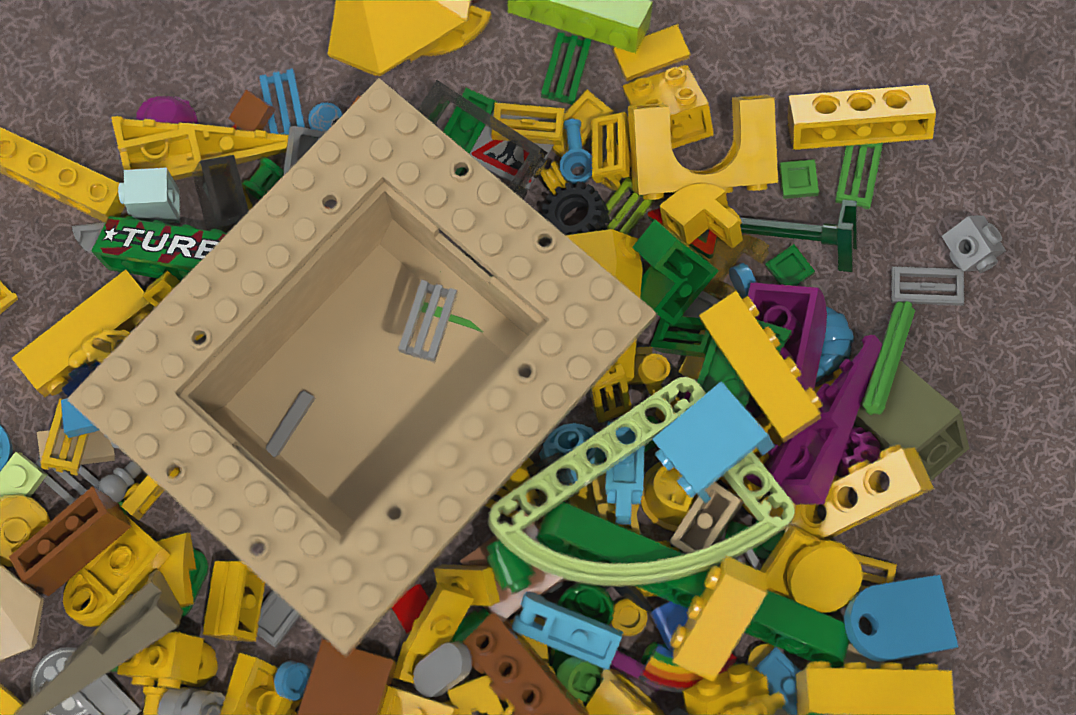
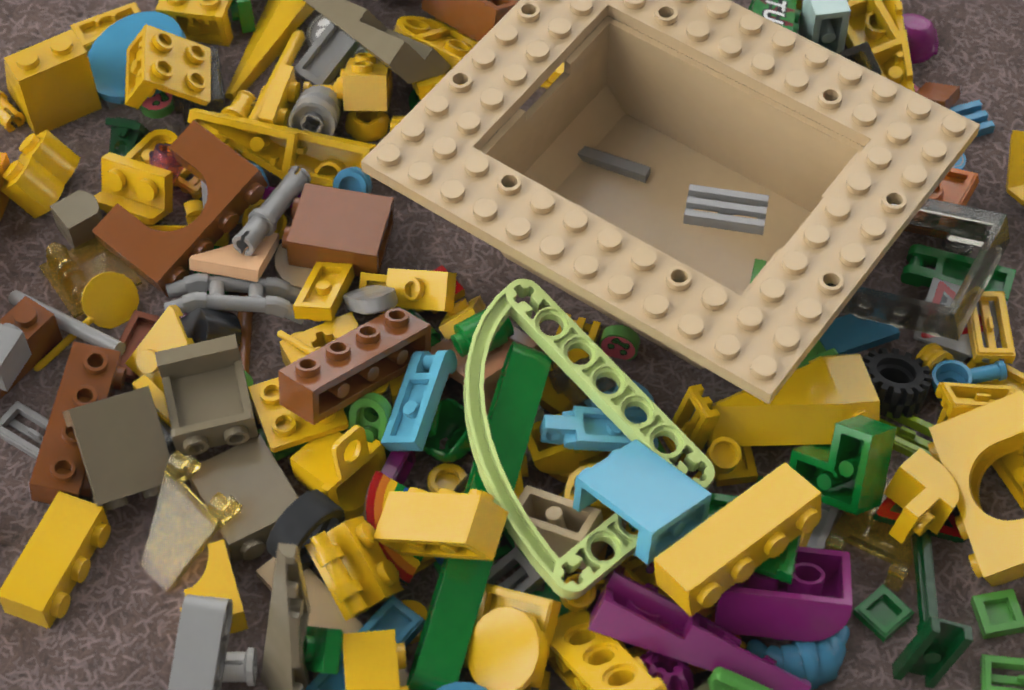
camera: 80 degrees right, 20 degrees down
(741, 278) = (861, 556): dark azure tile -> none

